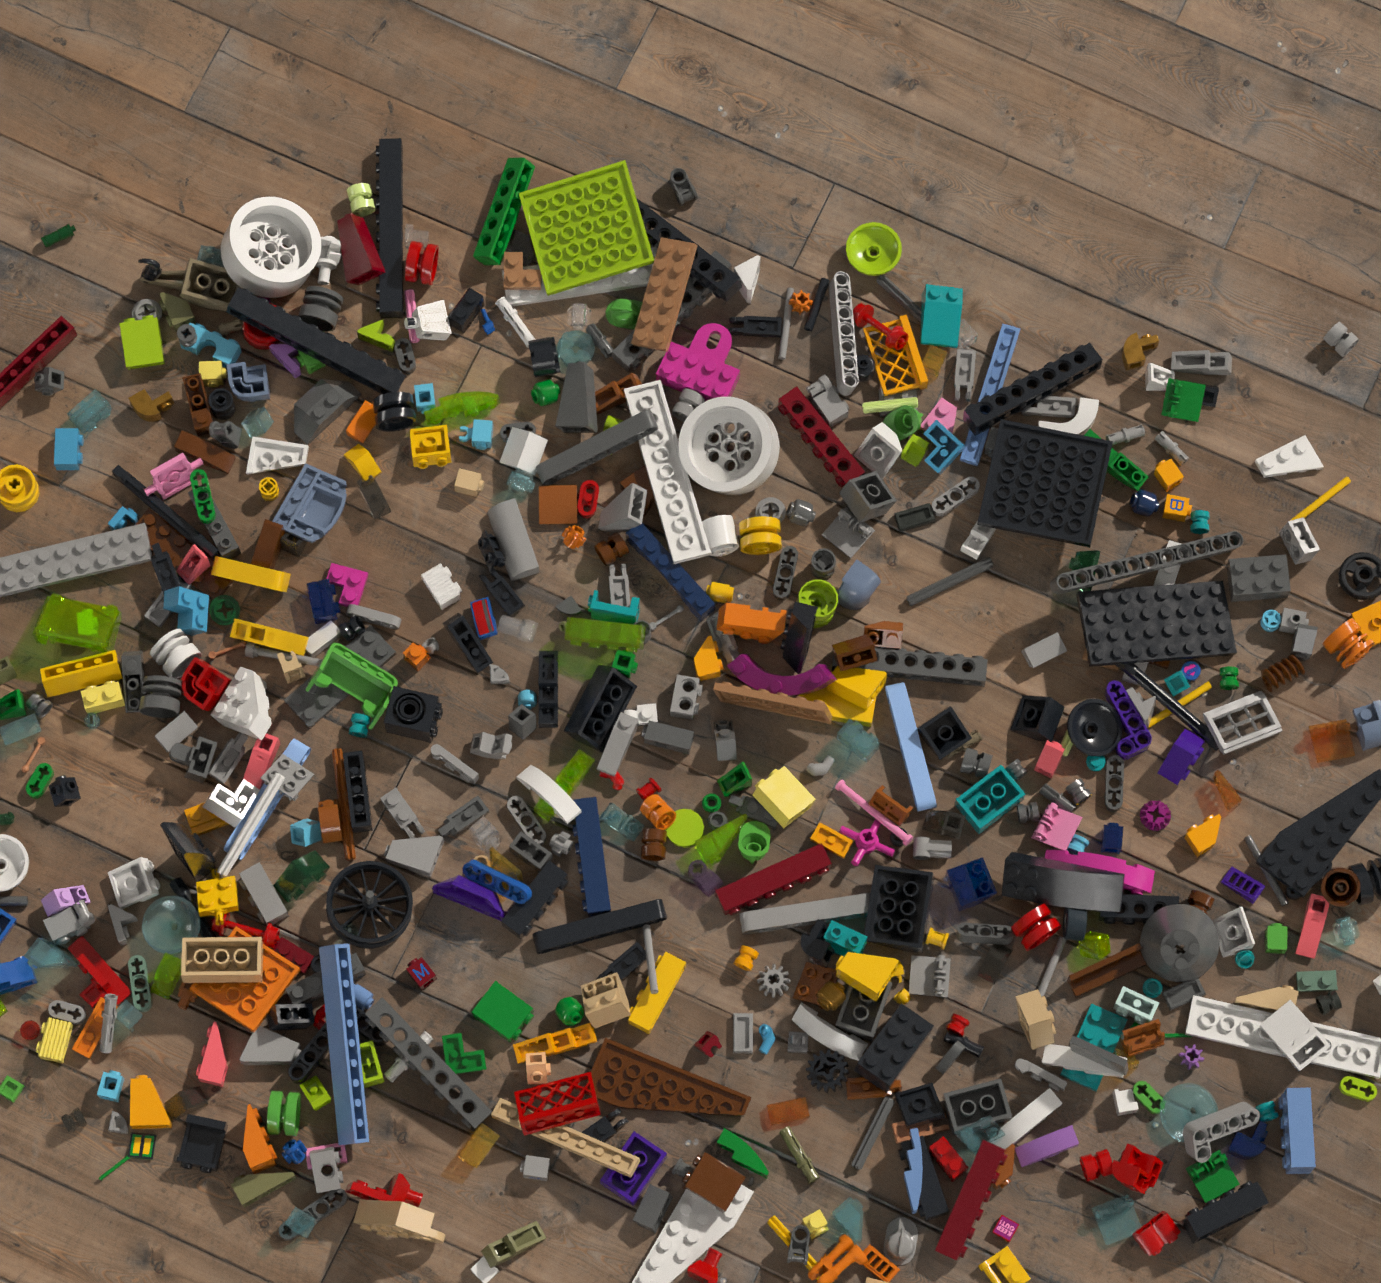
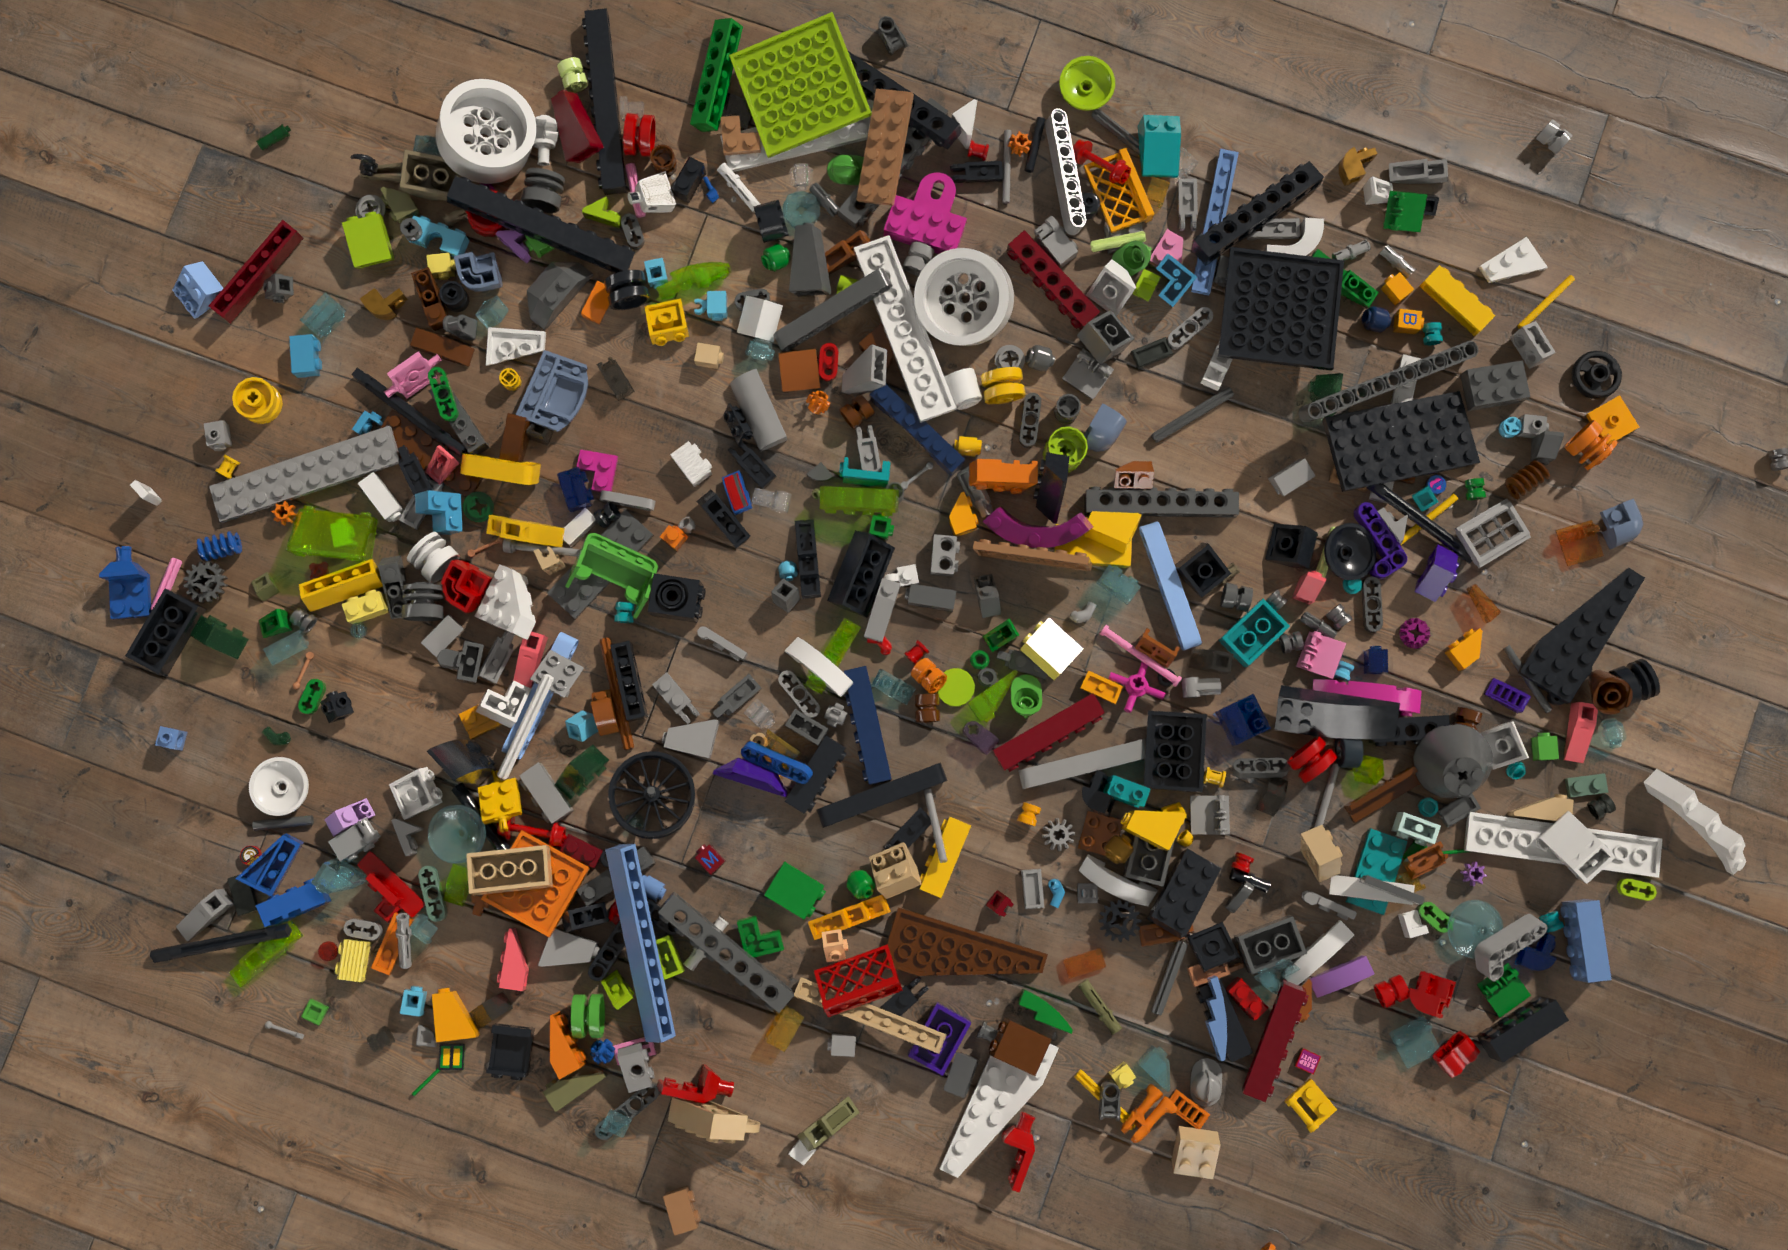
camera: 10 degrees left, 10 degrees up
(28, 595) = (282, 509): none -> orange gear
(55, 655) = (315, 567): none -> clear red plate
(129, 592) = (381, 497): none -> white brick
(362, 462) = (601, 343): yellow slope -> none
(443, 289) = (663, 160): none -> reddish brown wheel
(491, 746) = (757, 622): light grey brick -> none
(498, 675) = (756, 548): light grey tile -> none
(758, 305) = (978, 150): none -> red bush
(854, 652) = (1109, 498): reddish brown brick -> none
(1228, 491) = (1457, 300): none -> yellow brick

